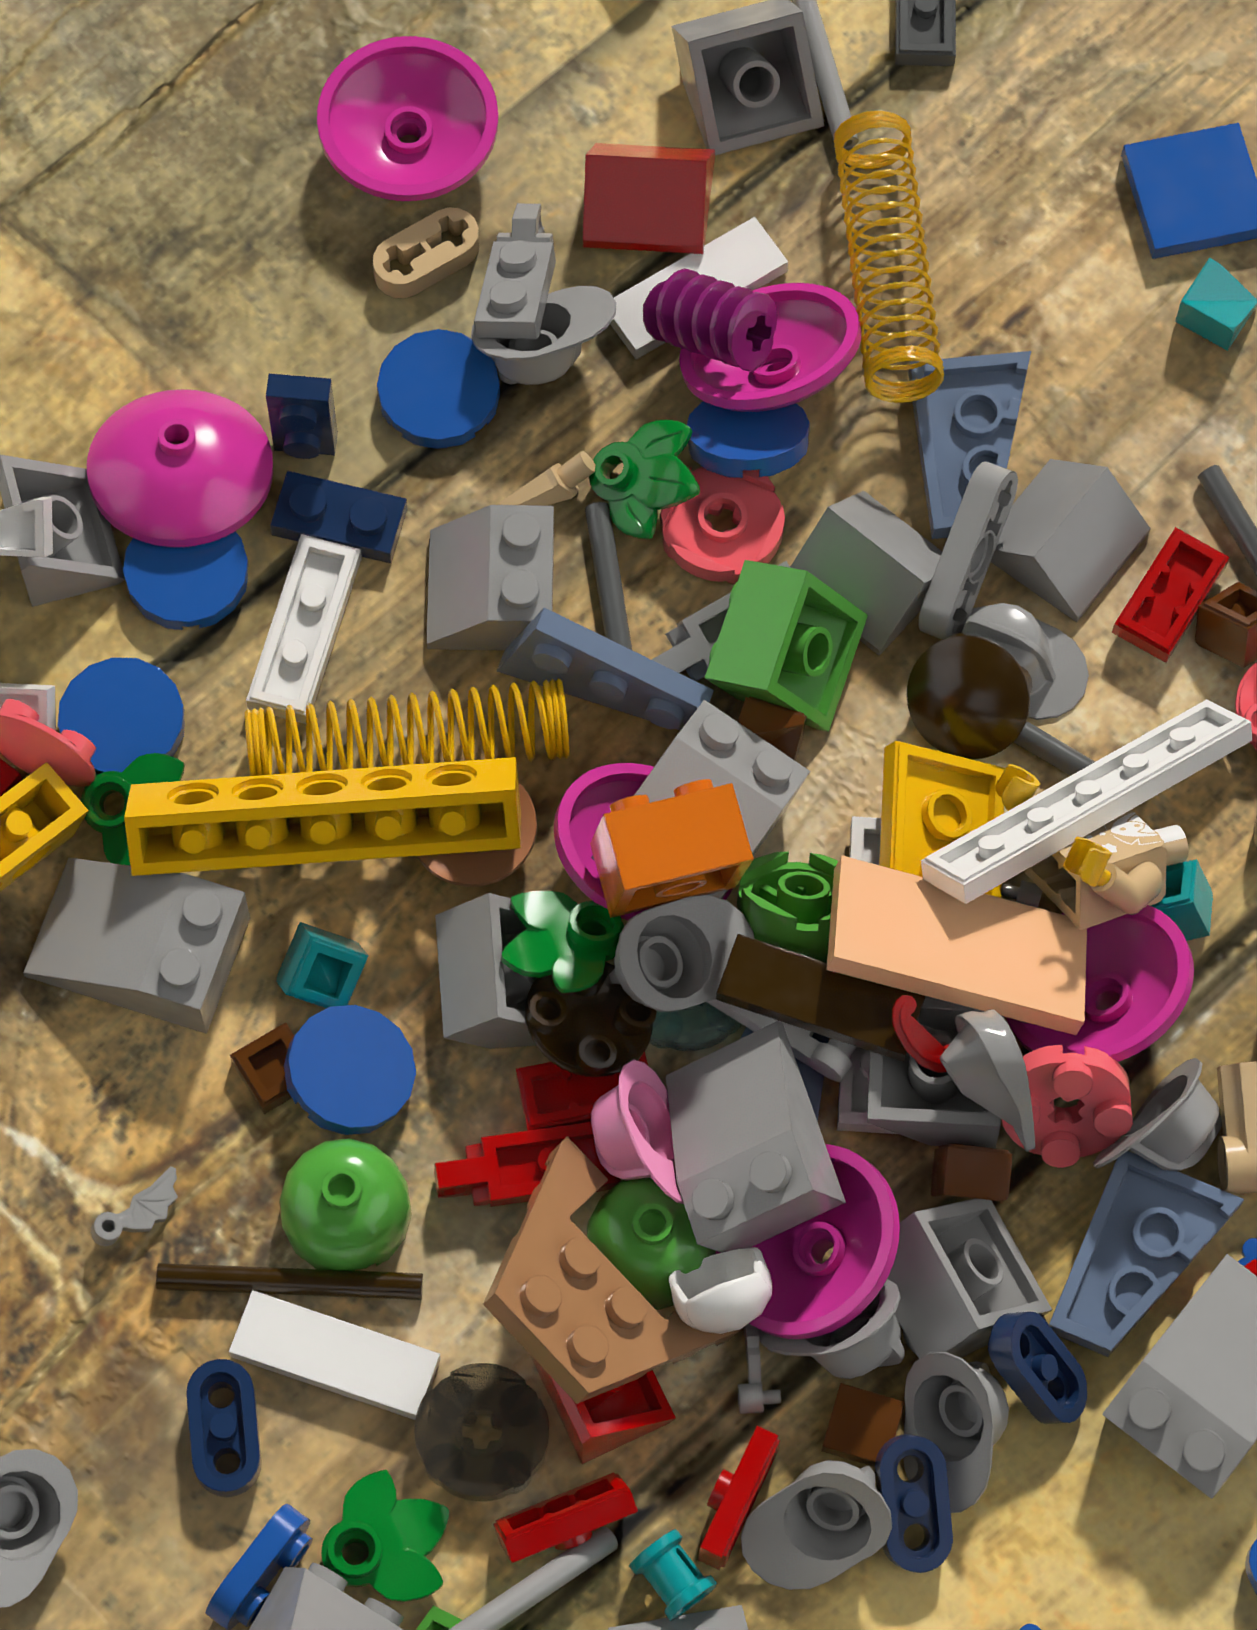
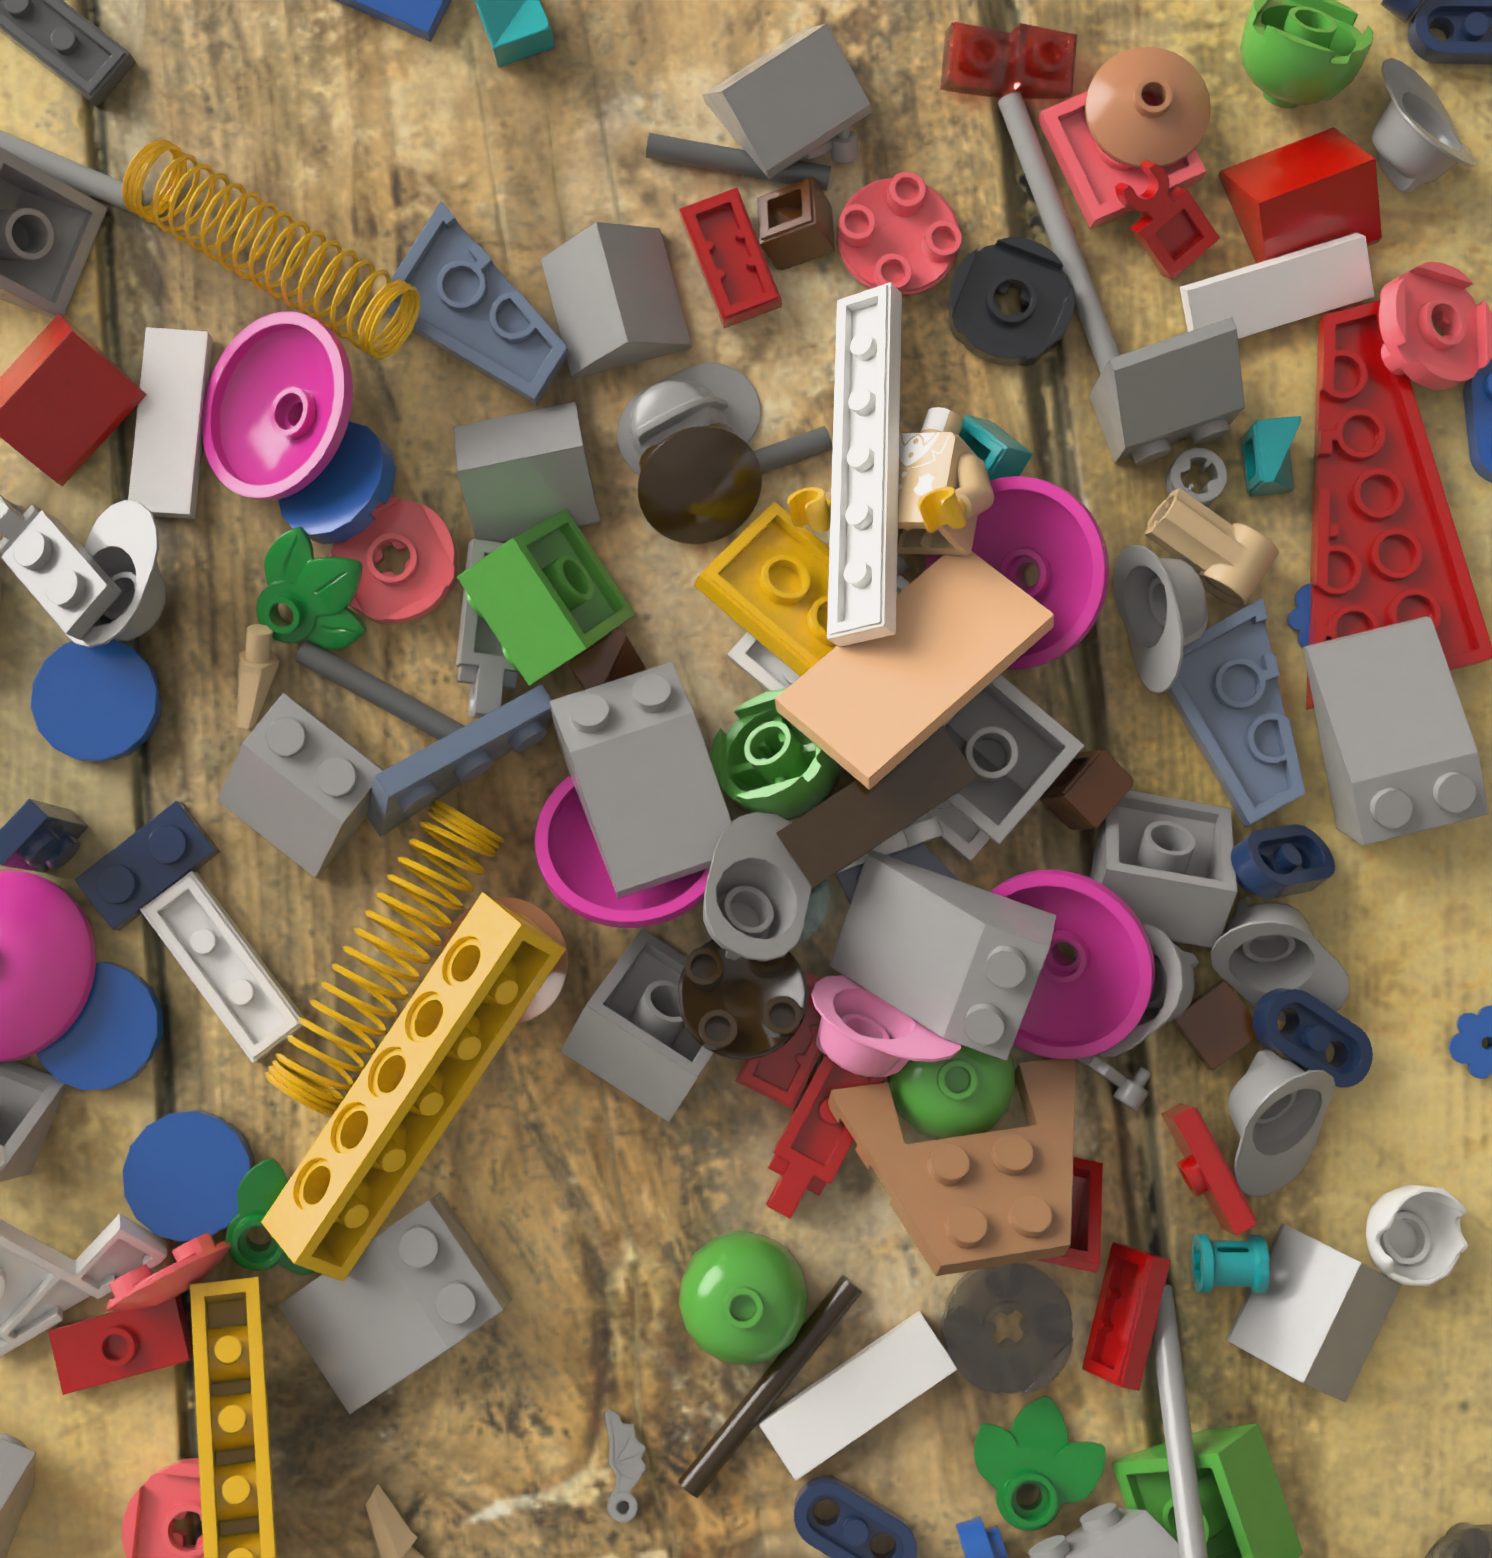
camera: 50 degrees left, 15 degrees up
(263, 1067) = (584, 1268): reddish brown tile -> none
(321, 967) = (530, 1170): teal slope -> none
(350, 1069) = (635, 1213): blue tile -> none
(562, 939) = (668, 982): green plate -> none
(670, 847) = (678, 840): orange brick -> none
(712, 318) = (218, 436): magenta piece -> none
(723, 1292) = (1051, 1065): white hair -> none
(968, 550) = (578, 387): light grey beam -> none
(980, 1061) = (1031, 726): light grey piece -> none
(1092, 1124) = (1096, 676): coral plate -> none

